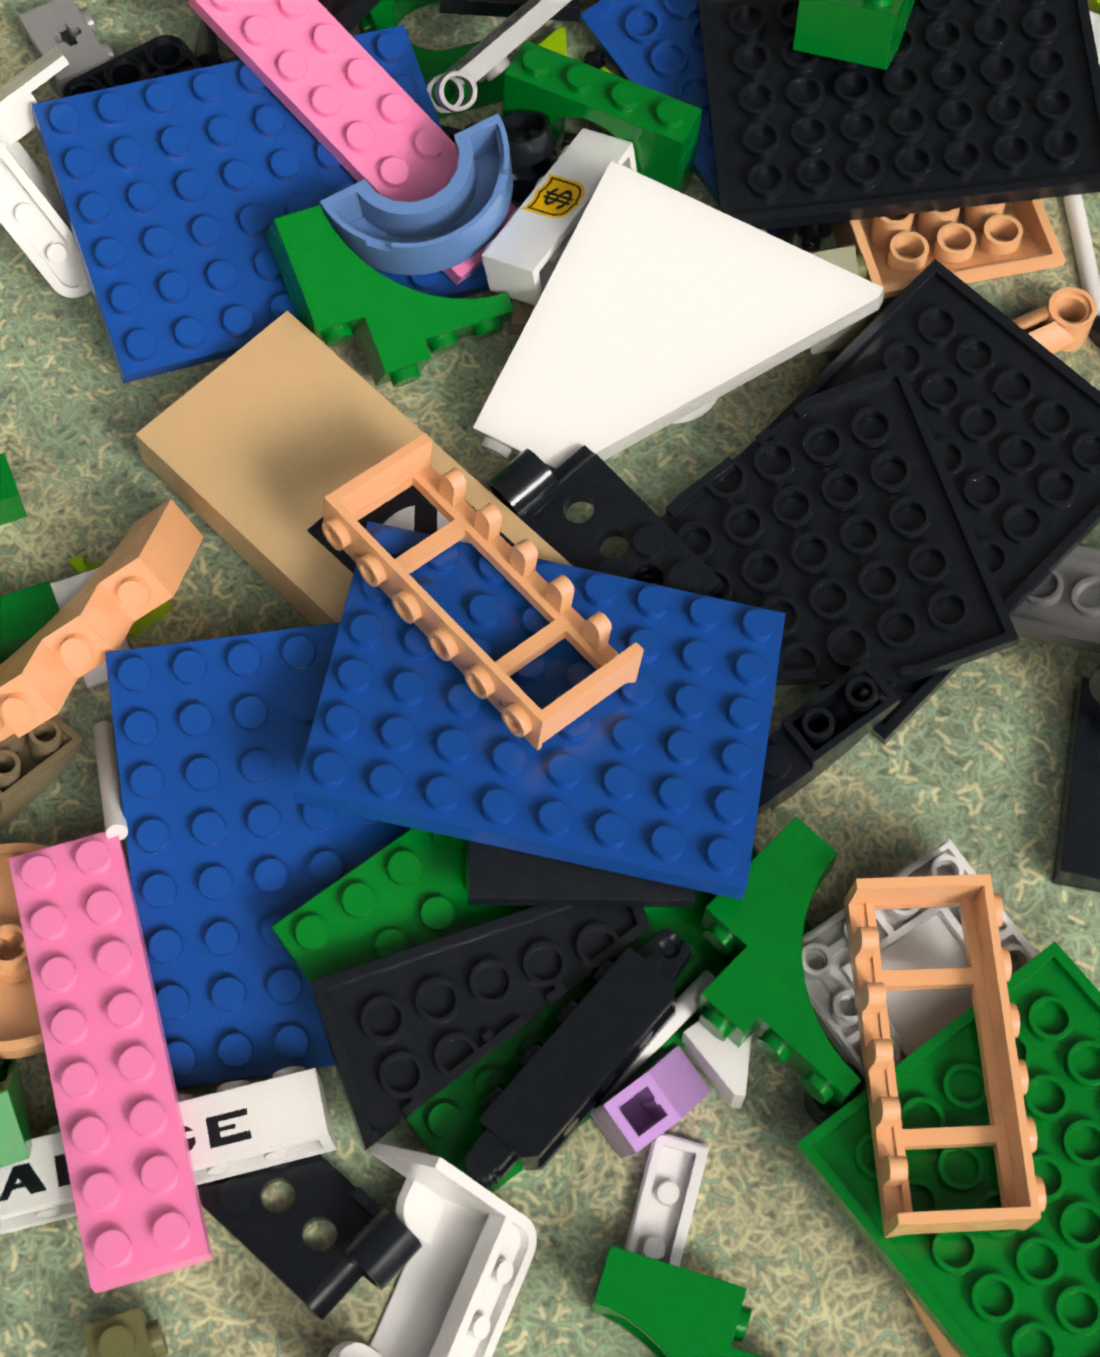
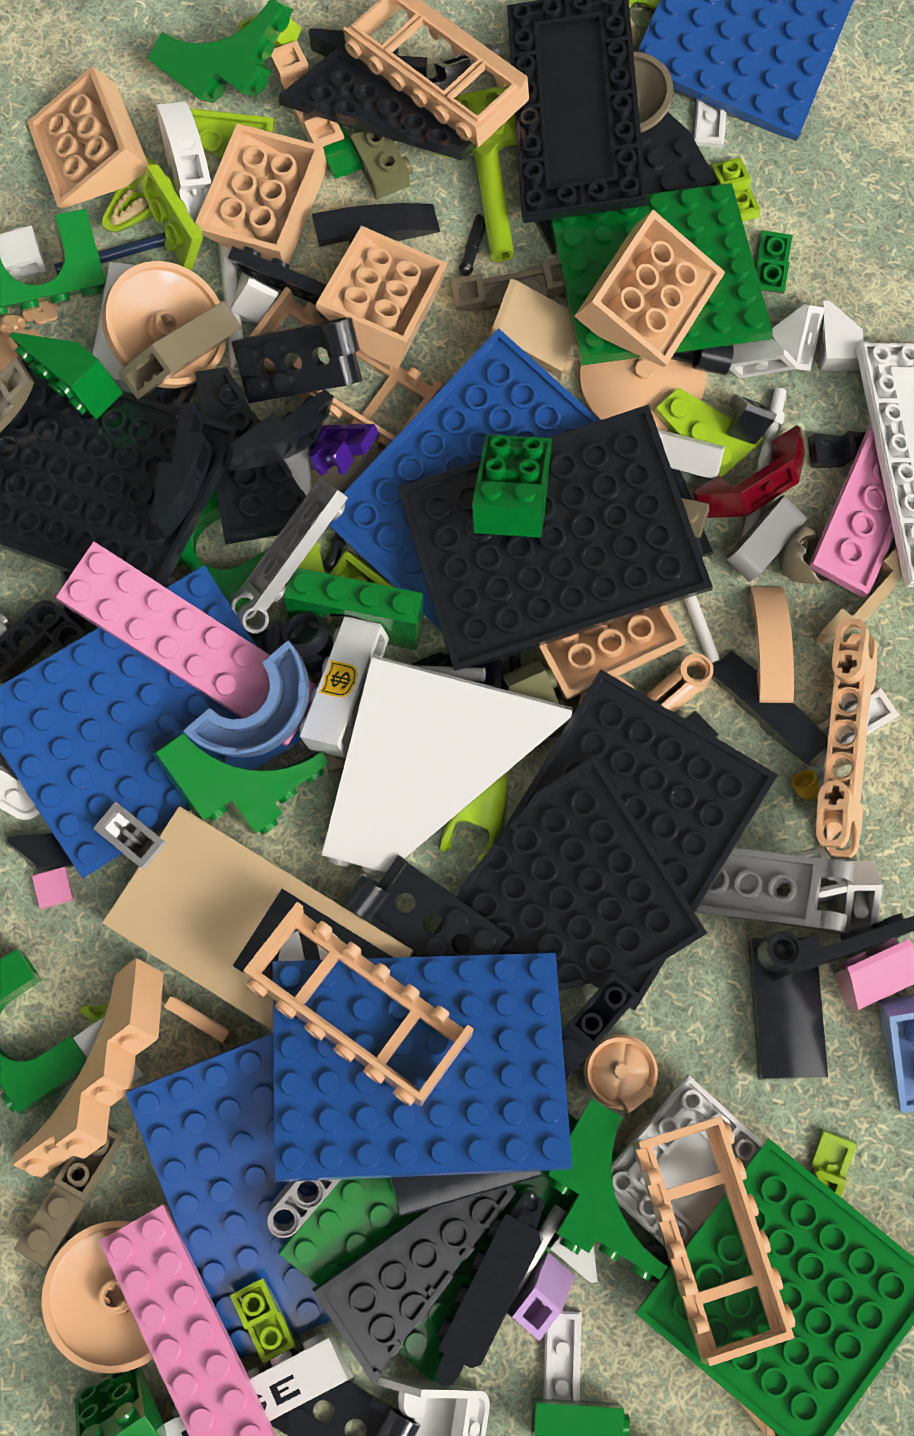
camera: 10 degrees left, 10 degrees up
(75, 347) = (40, 850): none -> black slope
(78, 400) = (53, 888): none -> bright pink tile
(109, 780) = (160, 1200): white bar -> none
(205, 324) = (129, 835): none -> light grey slope
(221, 1027) = (264, 1320): none -> lime slope
(230, 602) = (199, 1020): none -> light nougat tile
(321, 869) = (298, 1204): none -> light grey beam
(722, 425) = (484, 811): none -> lime animal
(851, 813) = (621, 1072): none -> light nougat piece

